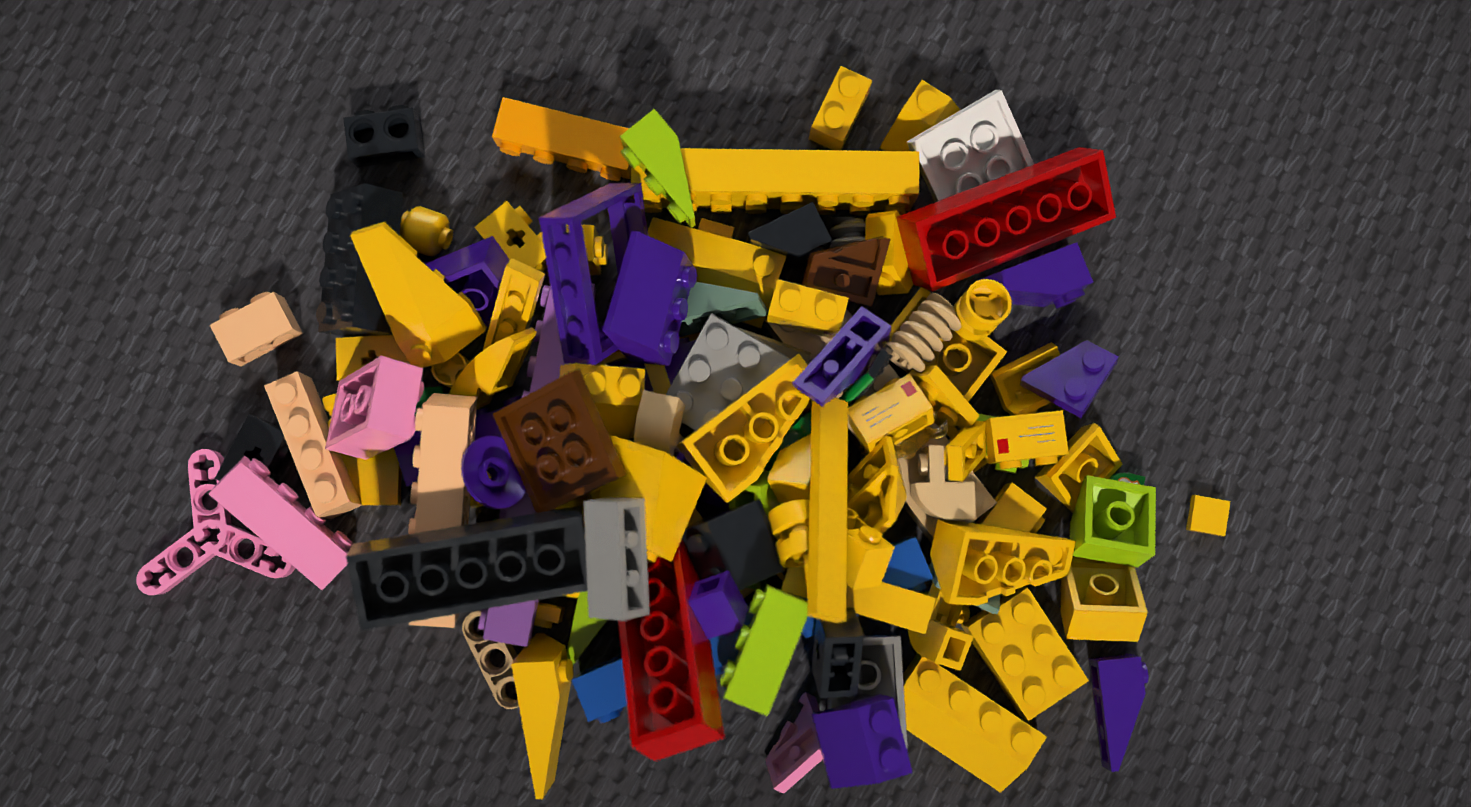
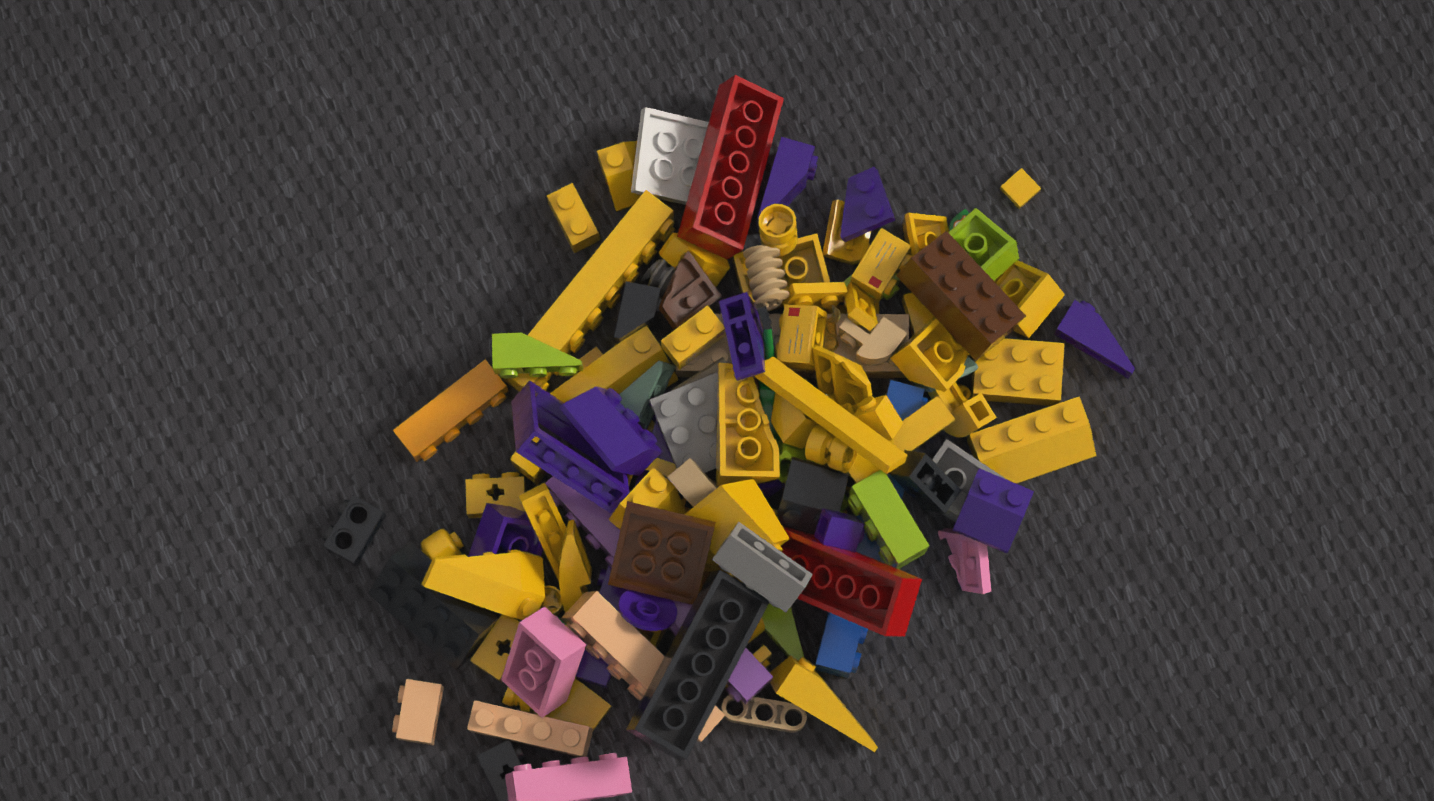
camera: 50 degrees left, 5 degrees down
(1056, 543) = (961, 295): none -> reddish brown brick

